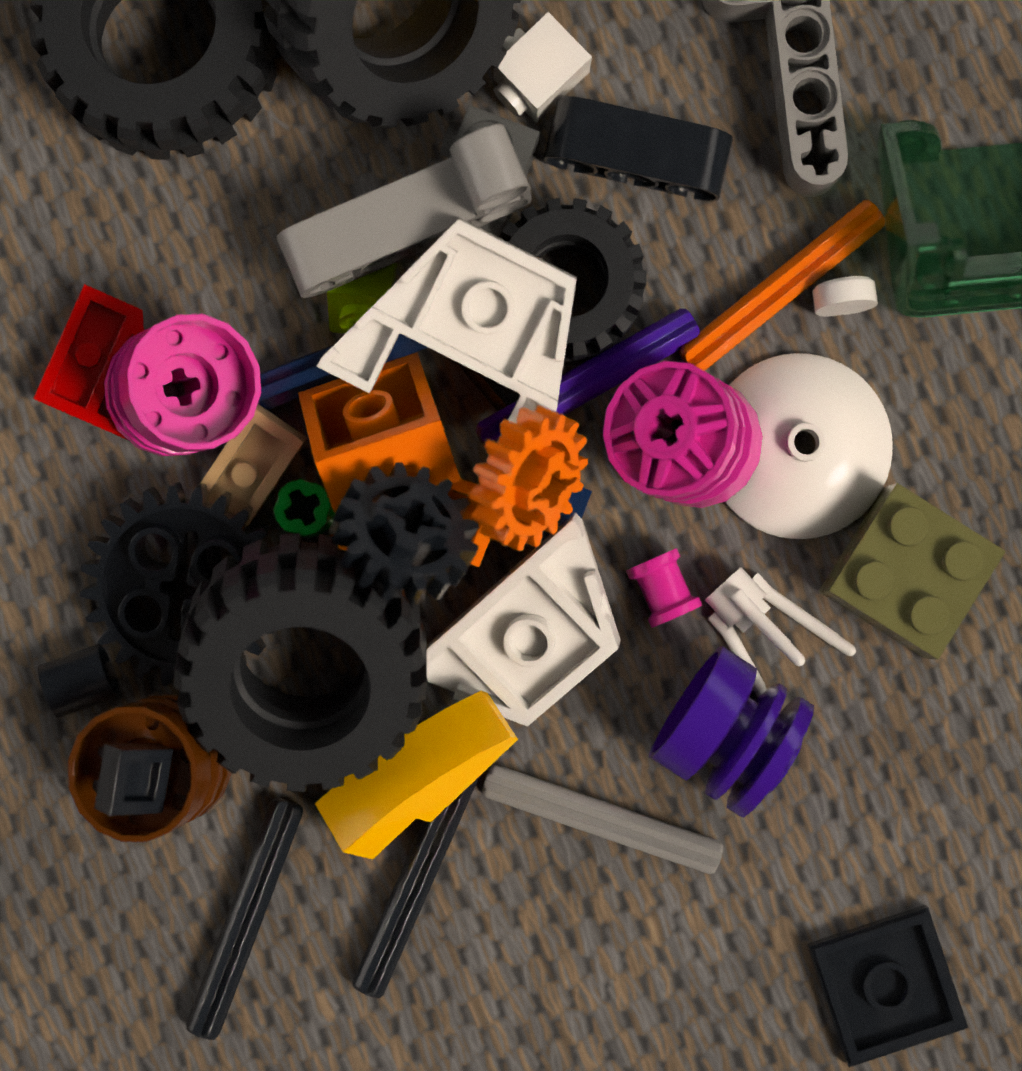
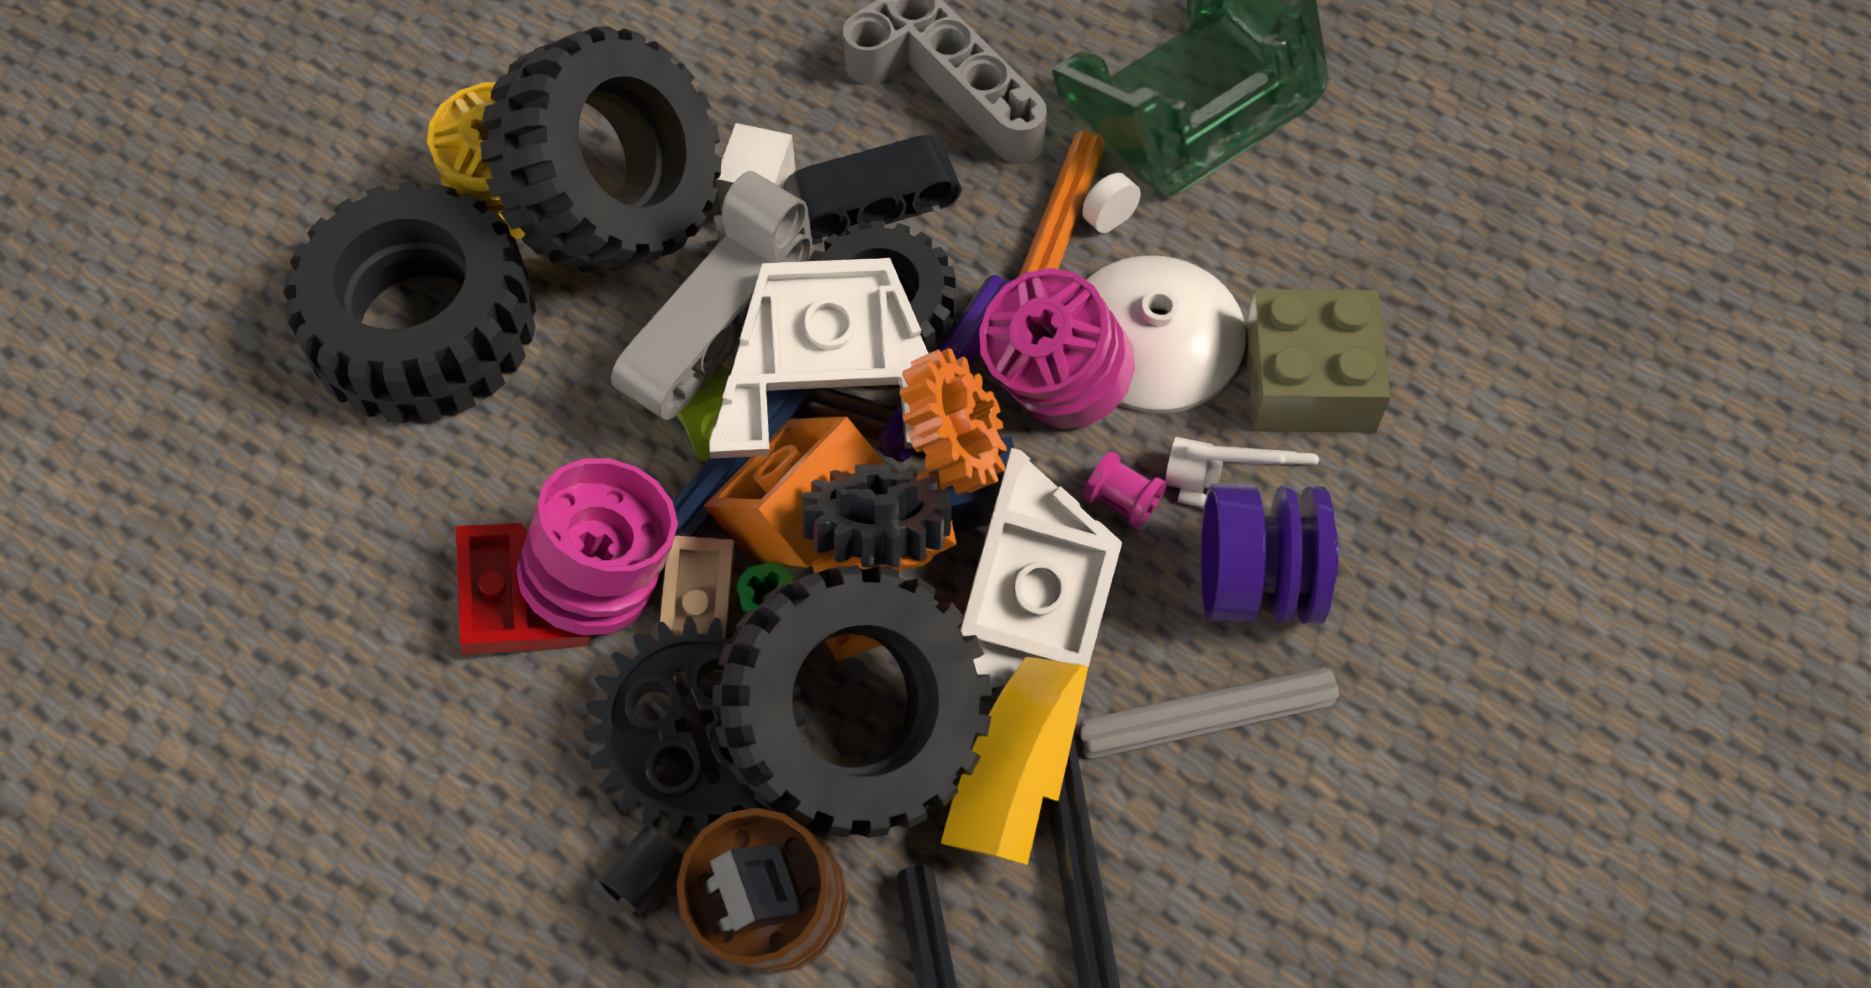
camera: 30 degrees left, 25 degrees down
(887, 985) = (1557, 706): black tile -> none

